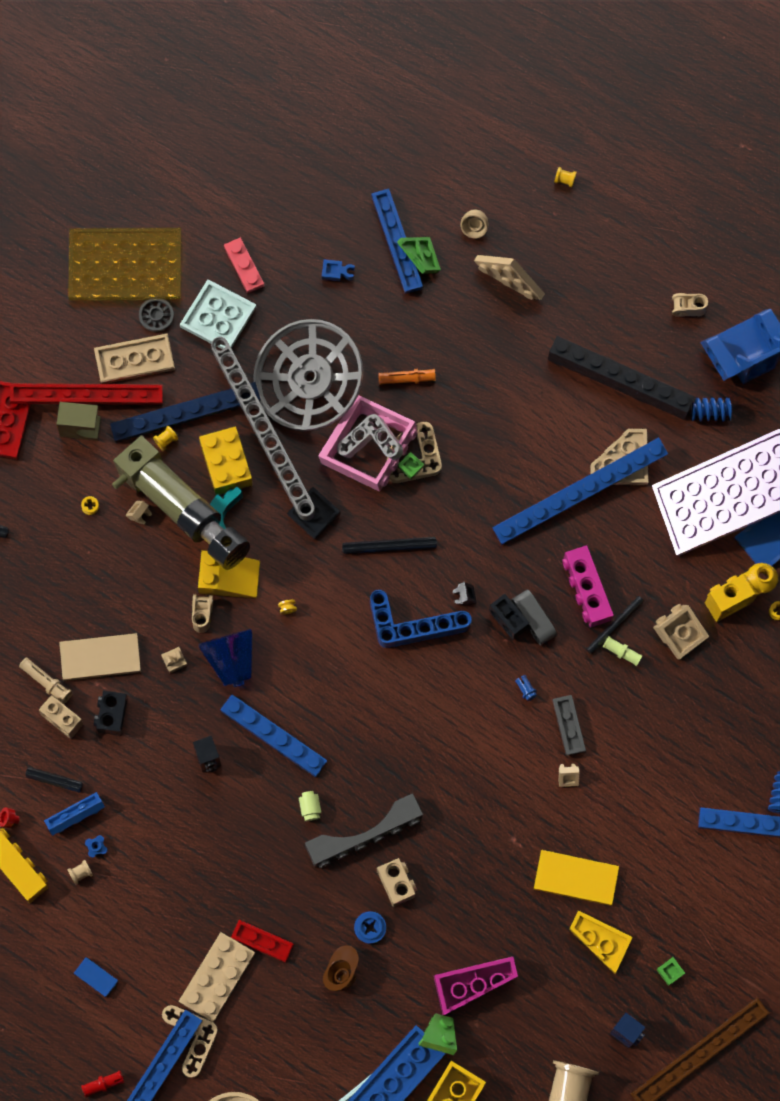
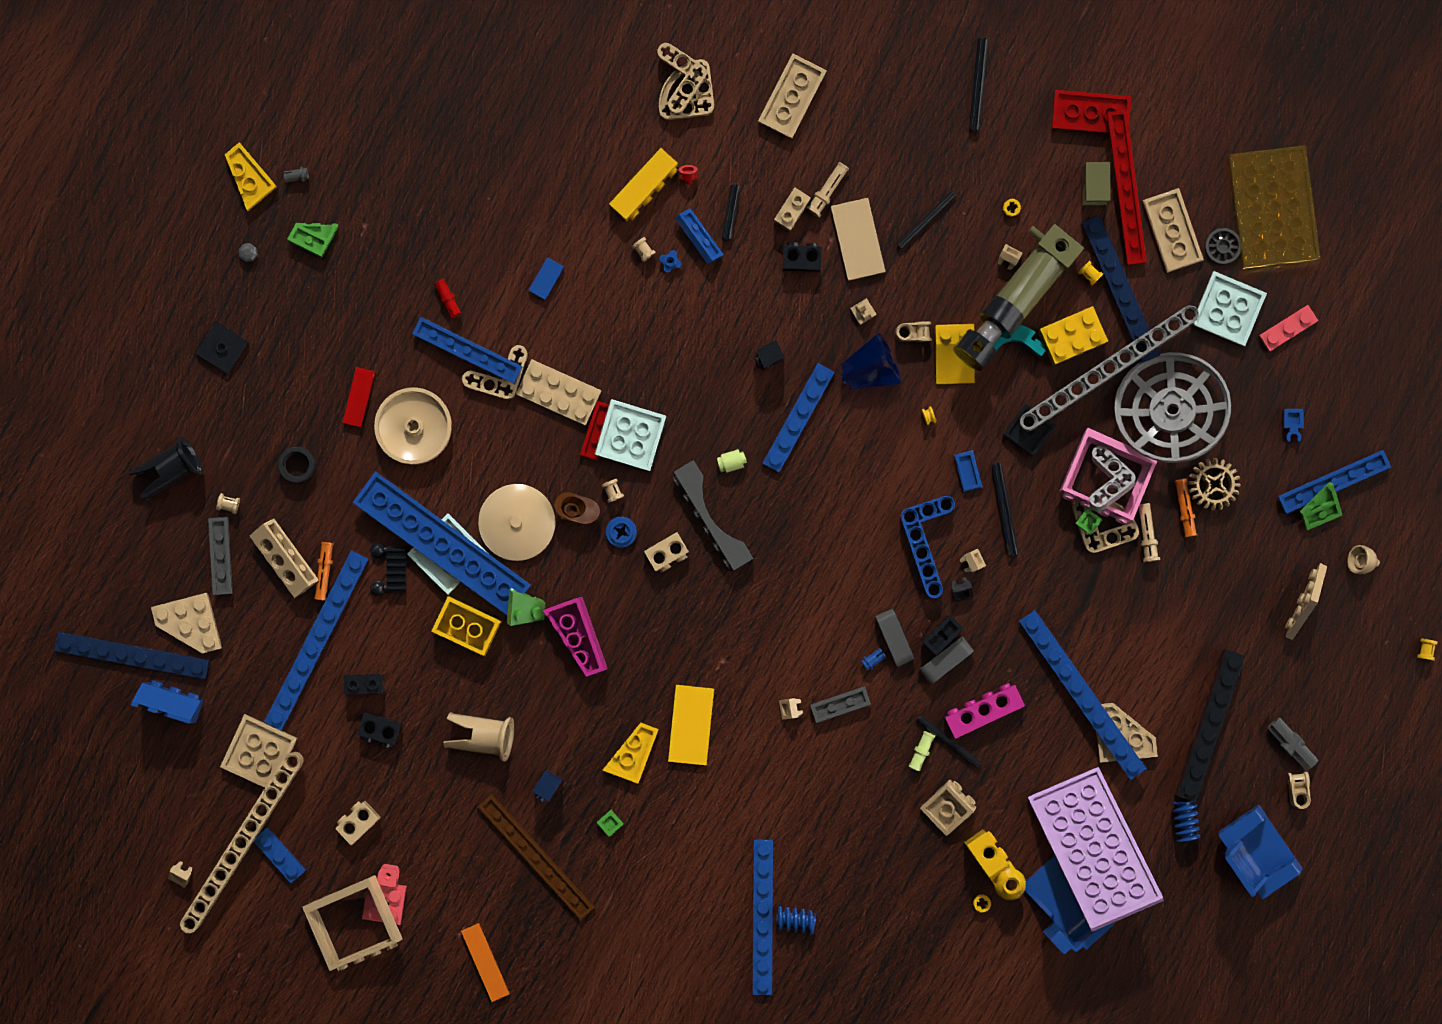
camera: 90 degrees right, 15 degrees up
(90, 588) = (926, 220): none -> black bar
(271, 906) = (630, 435): none -> light aqua plate
(326, 931) = (612, 490): none -> tan bush
(347, 576) = (968, 471): none -> blue tile
(348, 1036) = (516, 522): none -> tan dish
(378, 358) = (1207, 479): none -> tan gear
(437, 413) = (1146, 544): none -> tan pin
(437, 578) = (974, 561): none -> tan tile
(506, 664) = (894, 637): none -> dark grey beam
(644, 306) = (1292, 744): none -> dark grey piece

